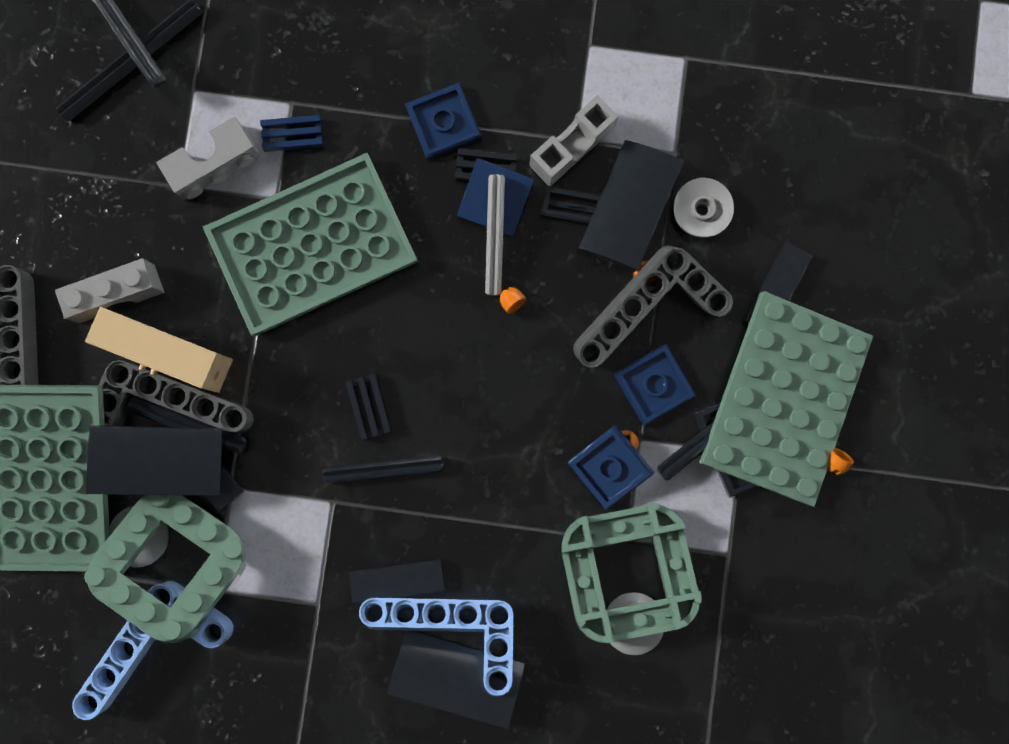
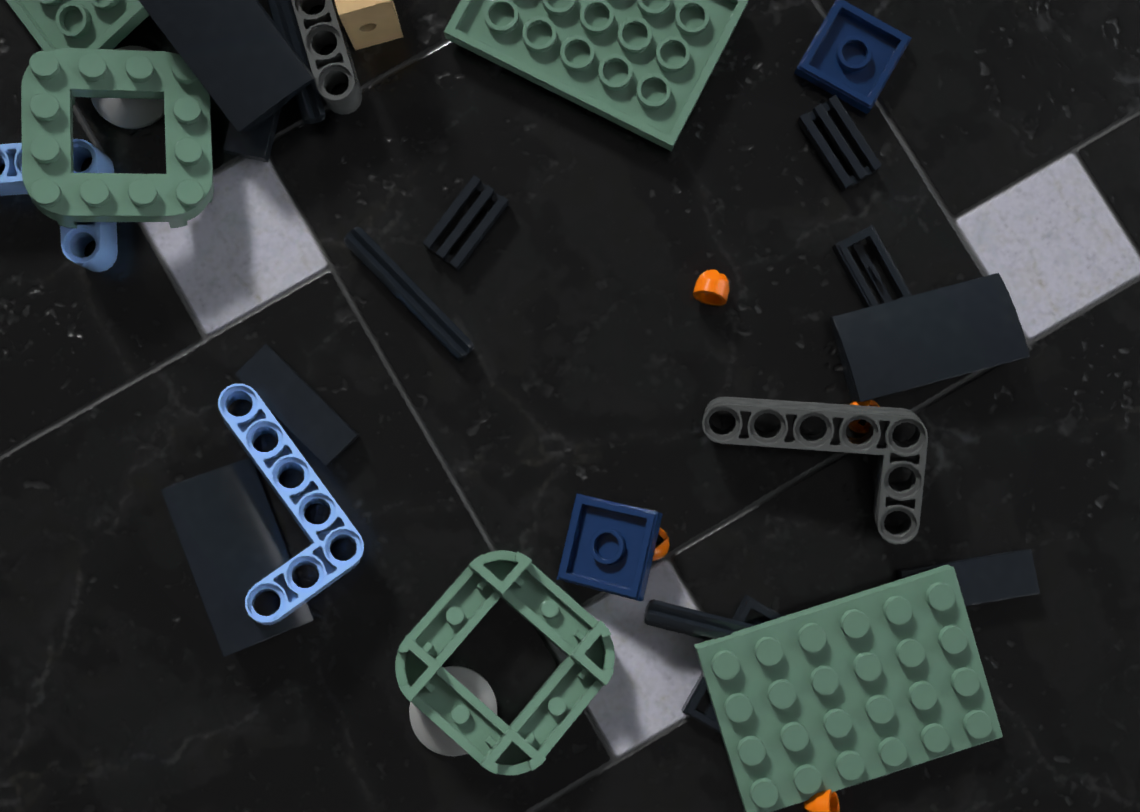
camera: 55 degrees right, 0 degrees up
(475, 200) = (814, 177): dark blue tile -> none
(495, 225) = (771, 209): light grey axle -> none
(583, 134) = (979, 221): light grey arch -> none
(654, 384) = (744, 524): dark blue tile -> none
(713, 197) = (1013, 420): light grey dish -> none

